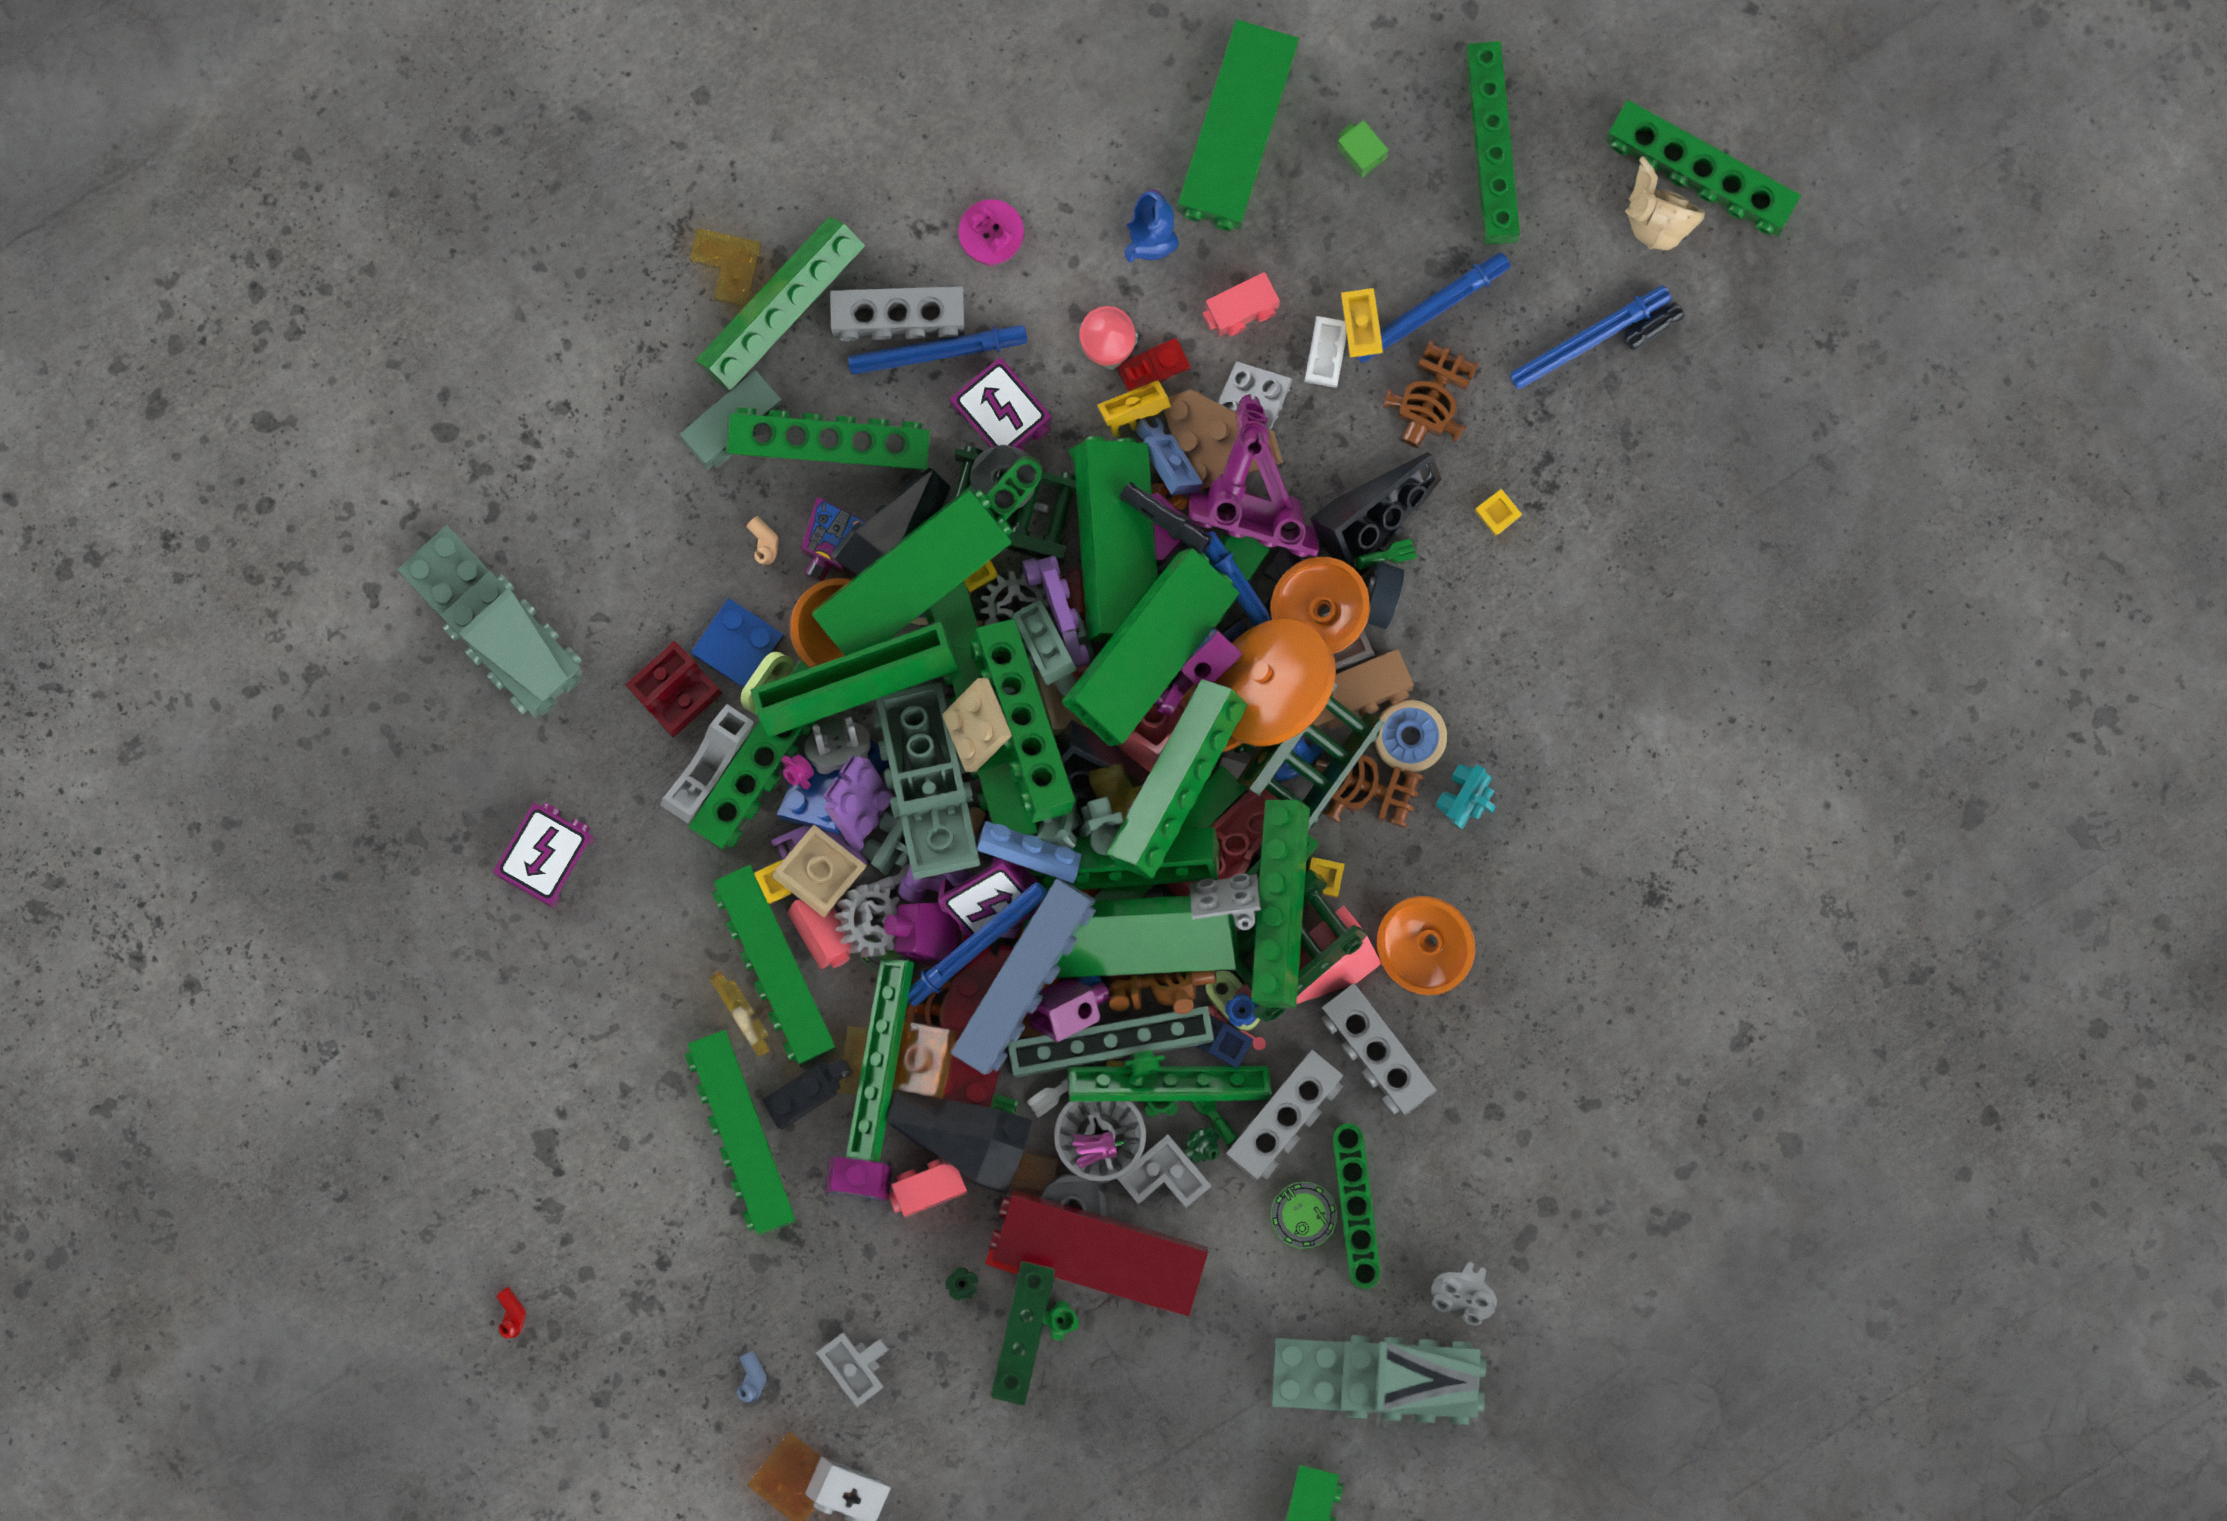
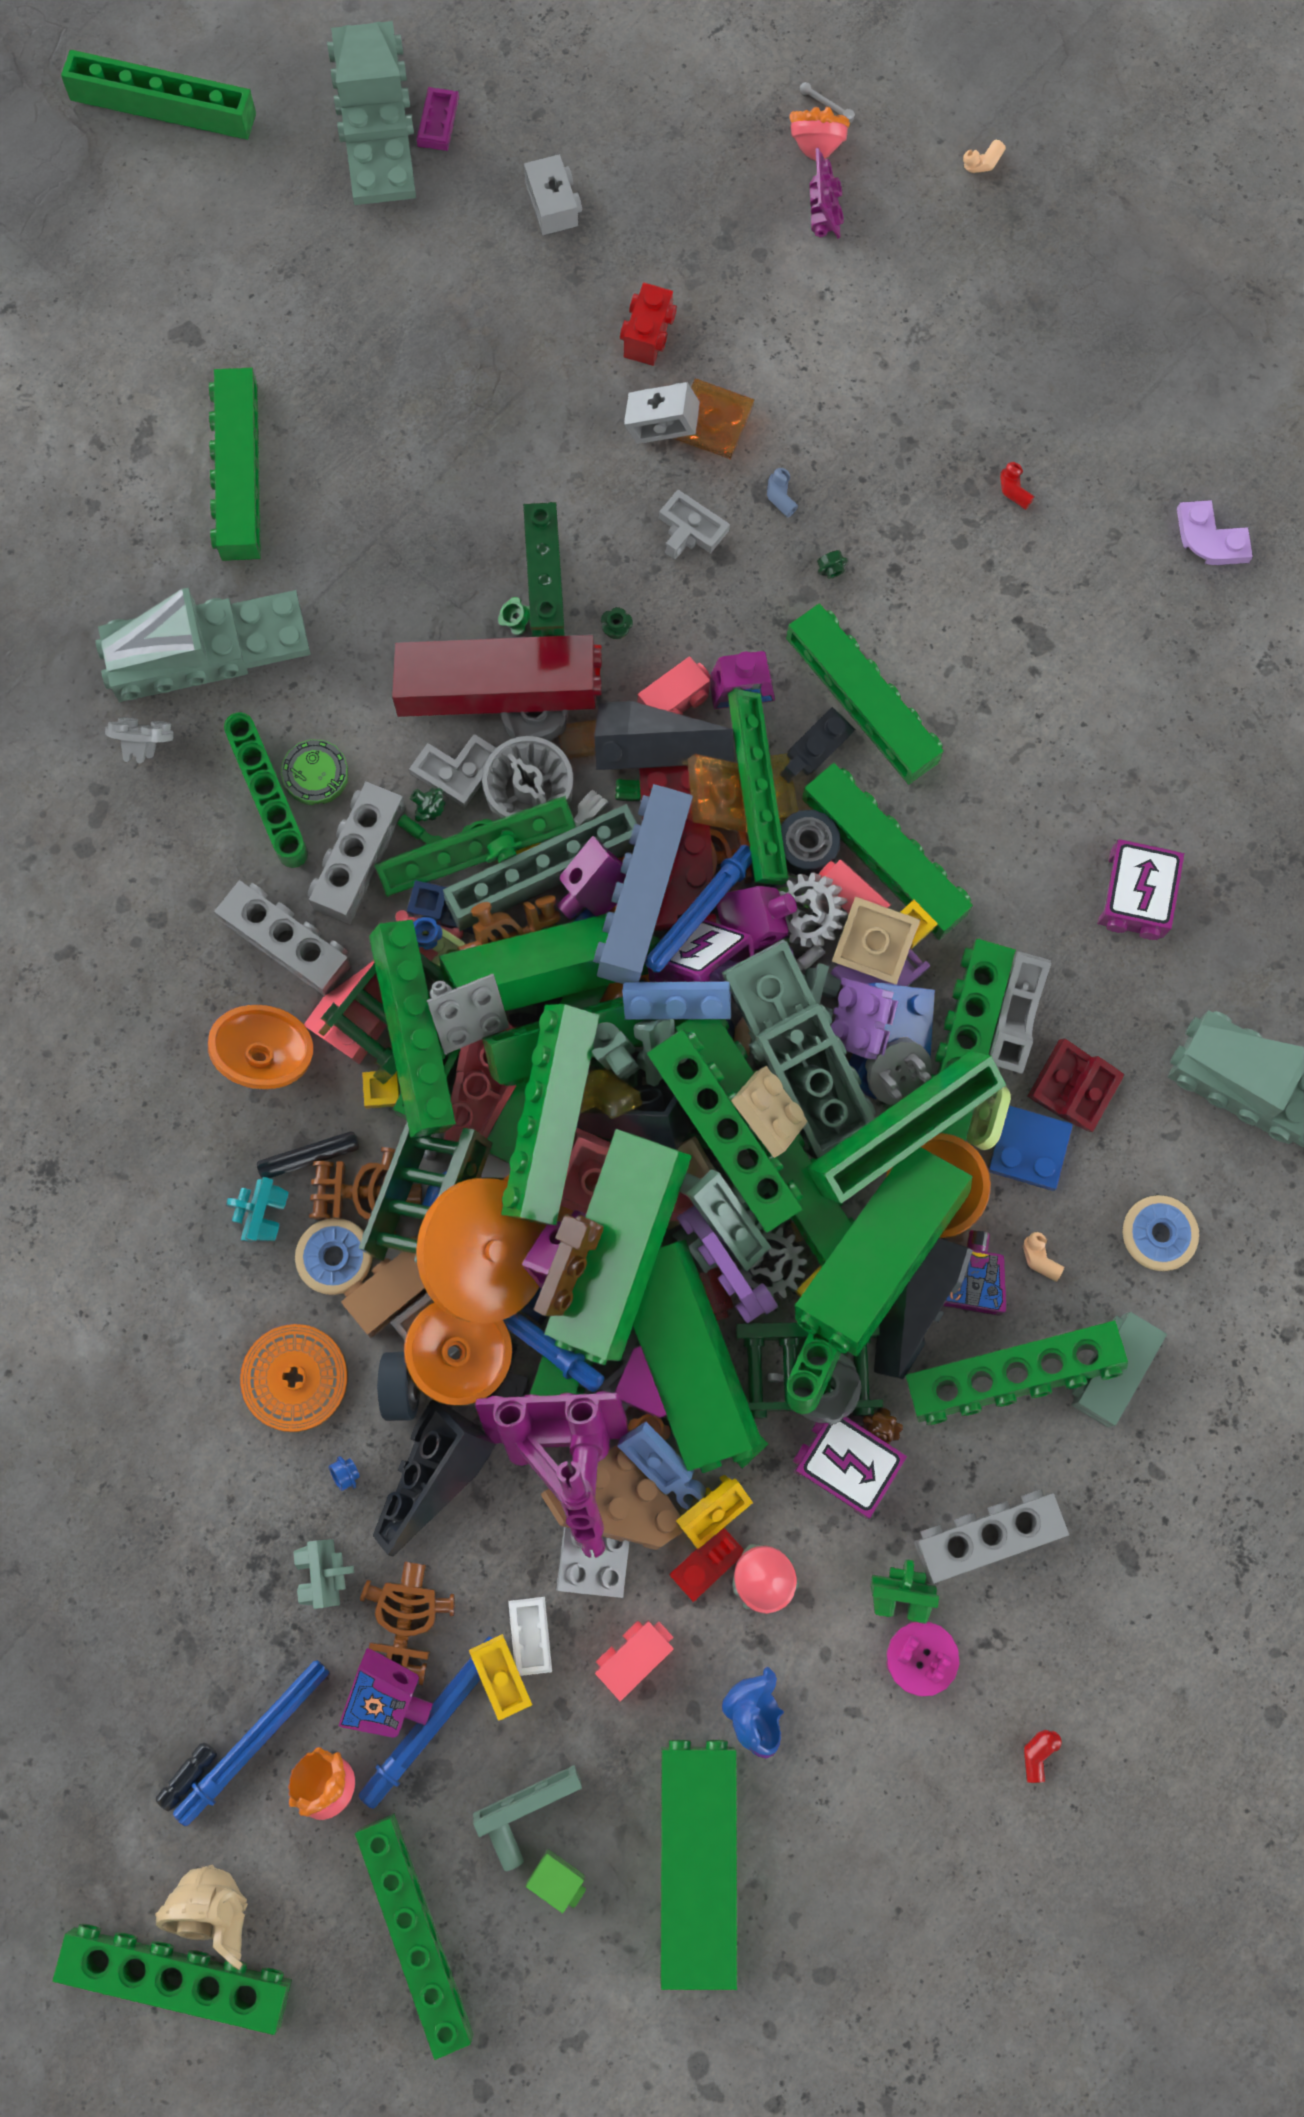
camera: 160 degrees right, 5 degrees down
(338, 1195) = (1216, 546): none -> lavender plate
(645, 551) = (1139, 1237): none -> wheel
(726, 1282) = (832, 564): none -> dark green plate
(735, 258) = (1176, 1544): clear yellow plate -> none
(741, 1011) = (906, 789): clear yellow plate -> none
(779, 303) = (1114, 1507): brick -> none
(797, 770) = (930, 1031): dark pink plate -> none
(830, 987) = (813, 826): none -> wheel
(919, 127) = (1037, 1751): none -> red arm
(938, 349) = (934, 1511): blue axle -> none
(961, 434) = (883, 1425): none -> reddish brown plant
(988, 292) = (907, 1587): none -> green hips
(1098, 1146) = (518, 760): flat silver piece -> none
(1169, 700) = (582, 1197): magenta plate -> none
(1177, 526) = (643, 1387): black pin -> none
(1188, 656) = (576, 1238): none -> reddish brown plate
(1371, 218) = (495, 1817): none -> sand green piece
(1396, 553) = (398, 1439): green piece -> none
(1409, 836) = (307, 1155): none -> black axle
(1451, 538) = (344, 1473): none -> blue plate
(1467, 336) = (383, 1697): none -> magenta torso
(1489, 454) = (325, 1574): none -> sand green hips
(1498, 512) = (302, 1515): yellow plate -> none
(1499, 627) = (311, 1400): none -> orange piece
(1539, 282) = (321, 1784): none -> orange hair

